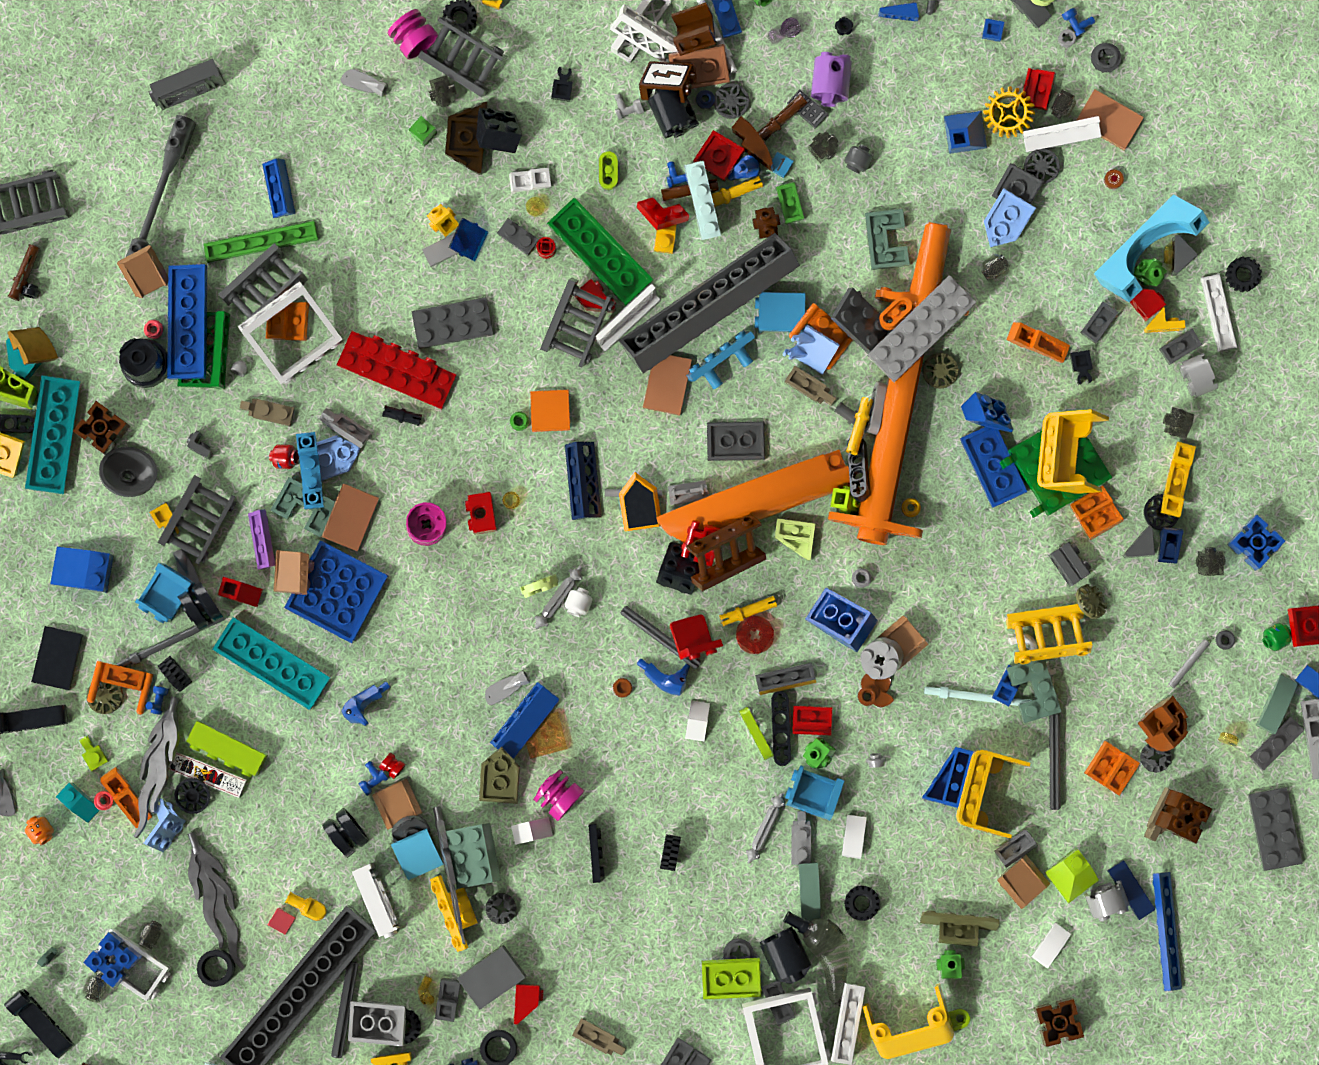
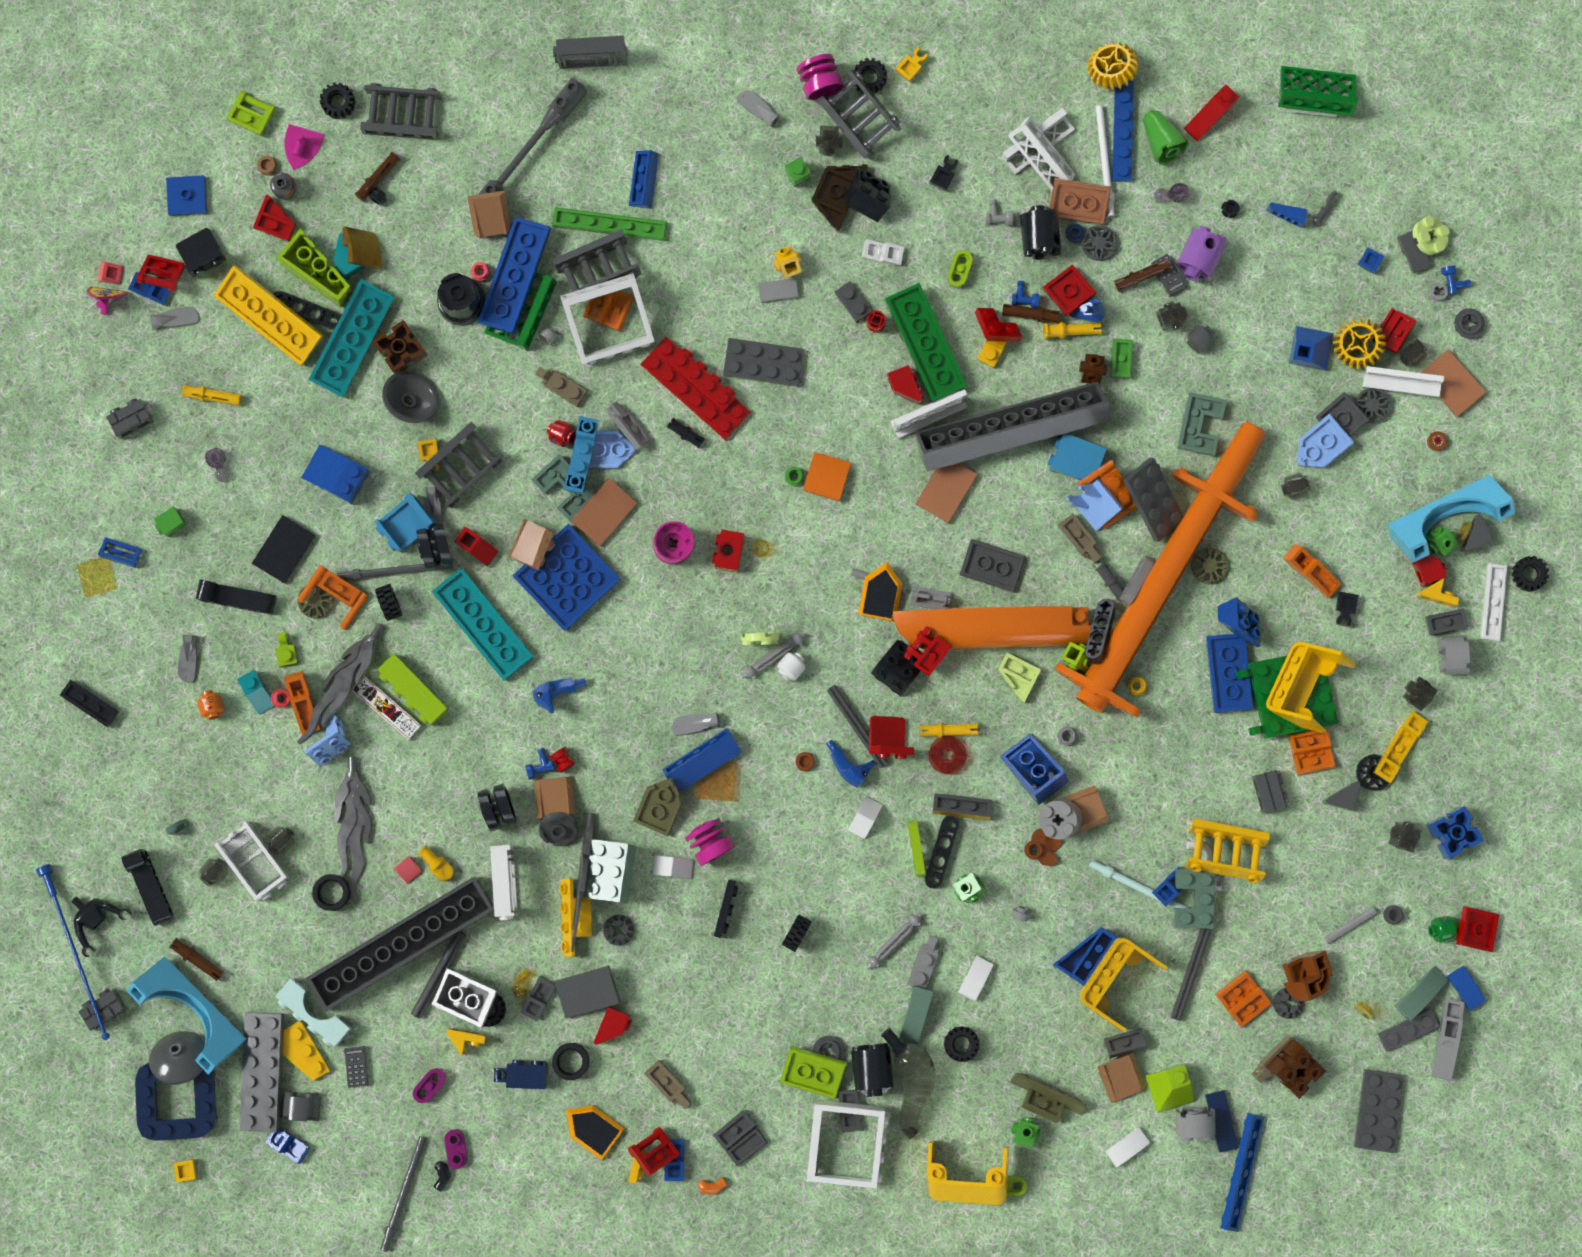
camera: 15 degrees right, 0 degrees up
(125, 958) = (249, 852): blue brick -> none
(155, 707) = (359, 627): blue piece -> none
(192, 795) = (365, 722): black wheel -> none
(201, 448) = (486, 399): dark grey bracket -> none
(261, 539) = (513, 504): medium lavender plate -> none
(417, 854) = (557, 851): medium azure slope -> none
(468, 239) = (805, 288): clear blue piece -> none
(535, 206) = (879, 279): clear yellow tile -> none
(565, 307) = (862, 397): dark grey fence -> none
(579, 480) = (831, 552): dark blue fence -> none
(668, 77) = (1046, 198): panel -> none
(694, 29) = (1087, 162): reddish brown panel -> none
(702, 200) = (1039, 327): light aqua arch -> none
(735, 347) = (996, 481): dark azure plate -> none
(736, 563) = (947, 682): reddish brown fence -> none
(753, 142) = (1106, 289): reddish brown slope -> none
(781, 164) = (1124, 319): dark azure tile -> none
(812, 720) = (973, 855): red plate -> none
(814, 793) = (952, 924): dark azure panel -> none
(848, 1024) = (909, 1154): white fence -> none
(862, 418) = (1119, 585): yellow pin -> none
(894, 313) = (1185, 496): orange plate -> none
(921, 328) = (1206, 520): light grey plate -> none
(1069, 1028) = (1118, 1231): reddish brown brick -> none
(1091, 600) = (1279, 833): olive wheel -> none
(1099, 322) = (1376, 572): dark grey plate -> none
(1170, 545) = (1371, 806): dark blue slope -> none

